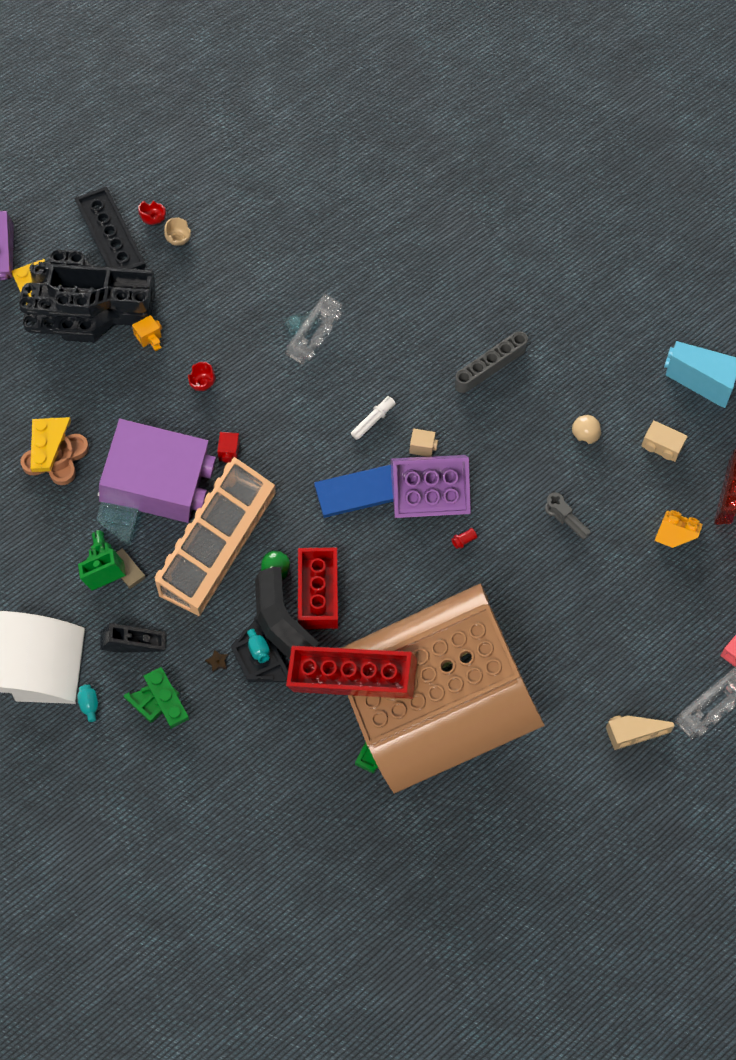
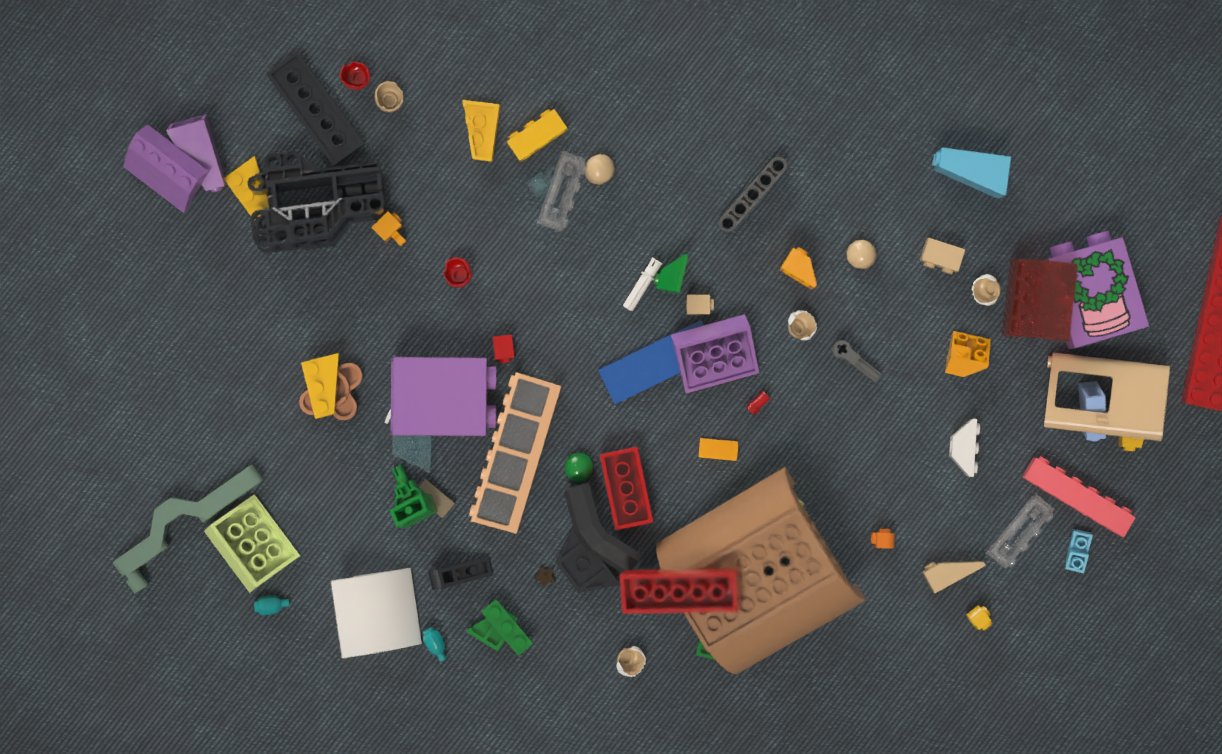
camera: 10 degrees left, 25 degrees up
(254, 272) = (482, 128): none -> yellow wing
(258, 646) = (582, 561): teal plant -> none
(285, 756) = (630, 661): none -> tan hair
(302, 283) = (536, 134): none -> yellow brick
(353, 320) = (599, 169): none -> tan hair
(403, 412) = (671, 276): none -> green slope
(416, 574) = (718, 449): none -> light orange slope
(519, 476) = (802, 325): none -> tan hair
(524, 424) = (799, 267): none -> light orange slope
(570, 685) = (883, 539): none -> orange plate
(661, 782) = (979, 618): none -> yellow plate
(665, 614) = (964, 447): none -> white slope
(703, 476) = (986, 289): none -> tan hair

